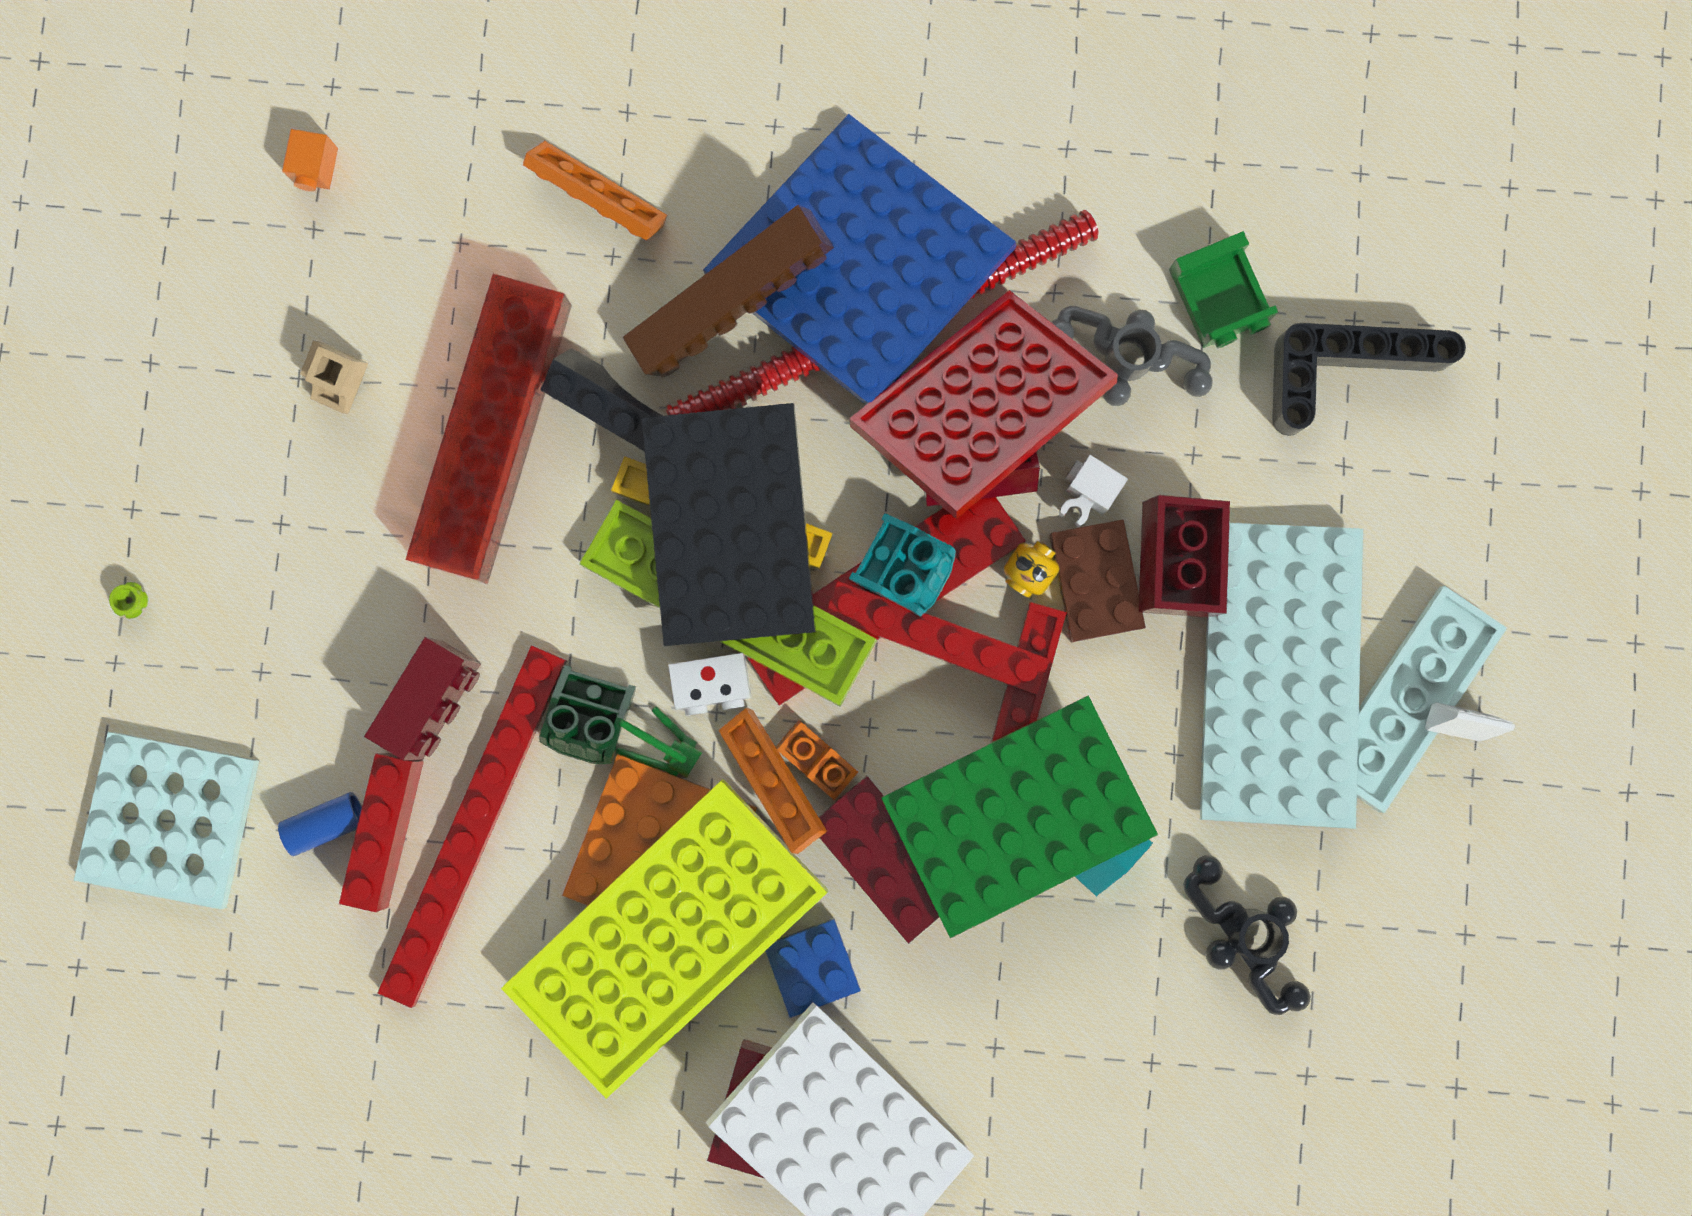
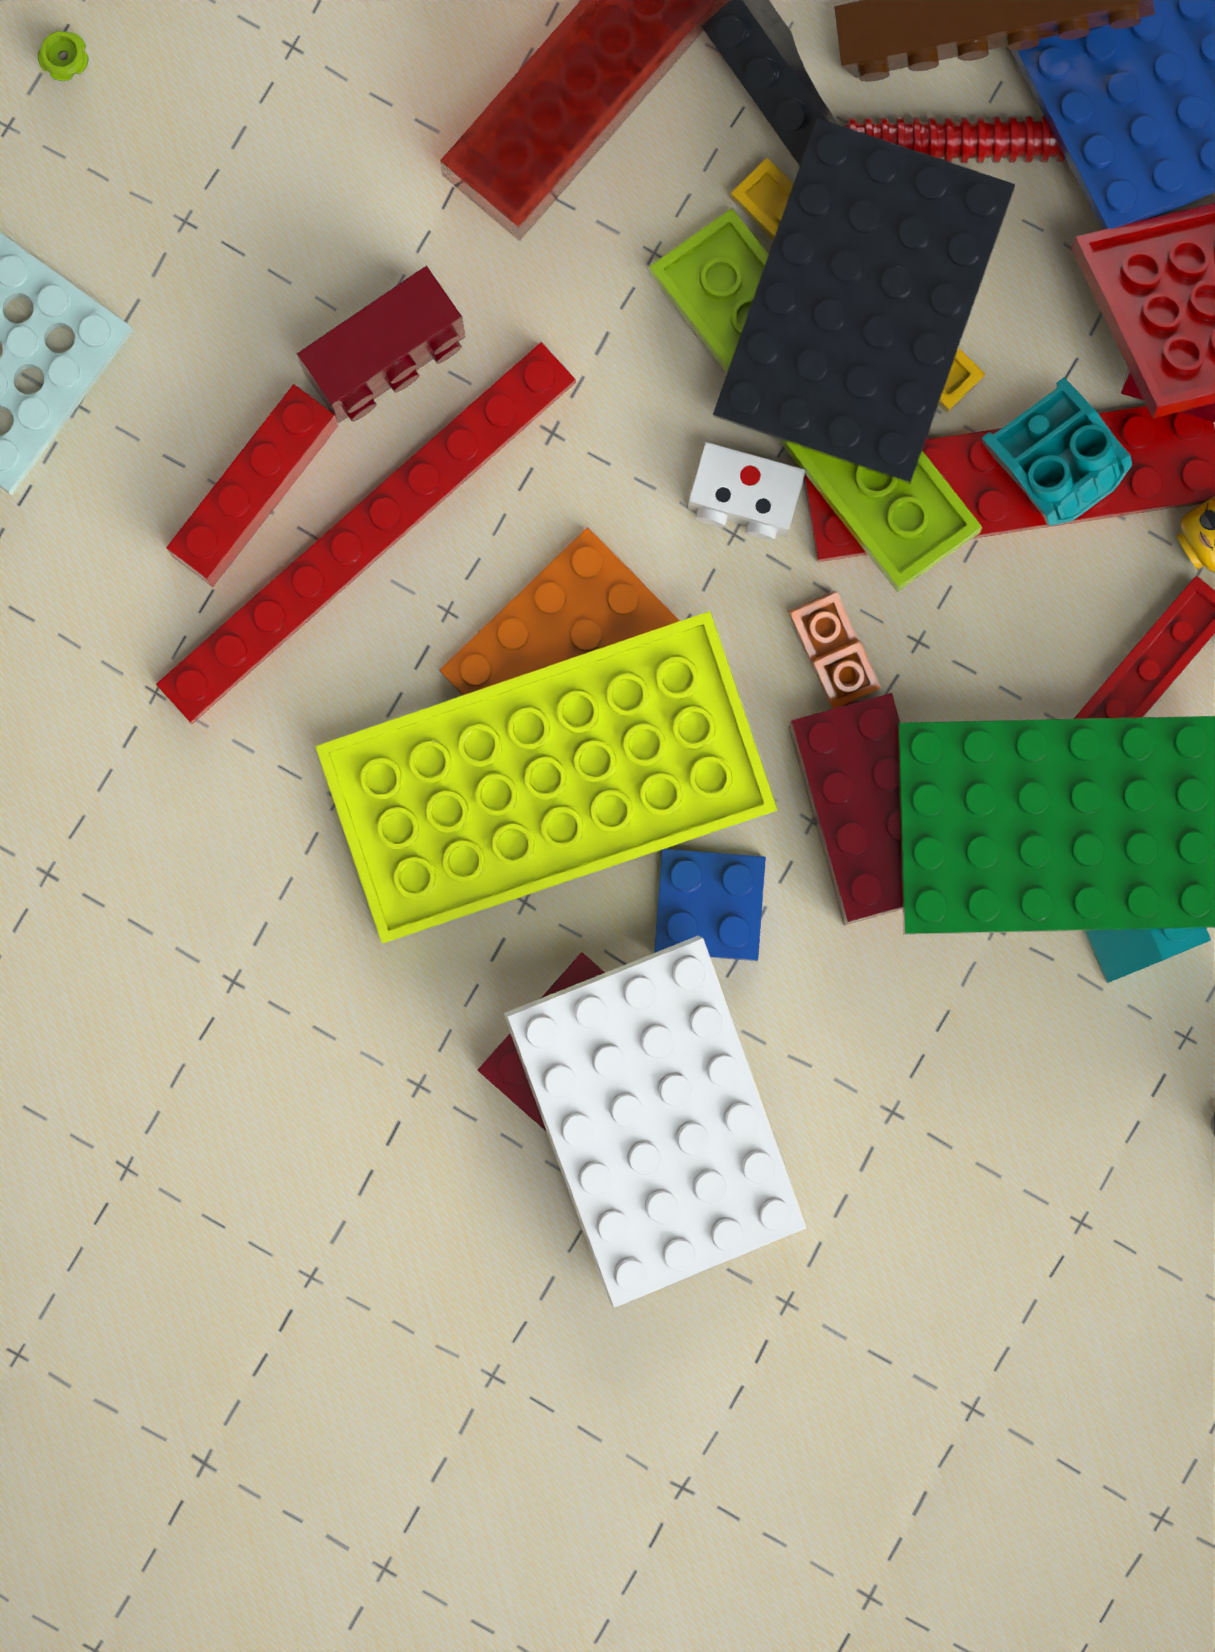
camera: 25 degrees right, 0 degrees up
(320, 824) = (181, 443): blue pin -> none
(585, 717) = (570, 463): dark green slope -> none
(679, 756) = (665, 566): green plant -> none
(772, 781) = (769, 644): orange plate -> none
(938, 638) = (1060, 566): red plate -> none

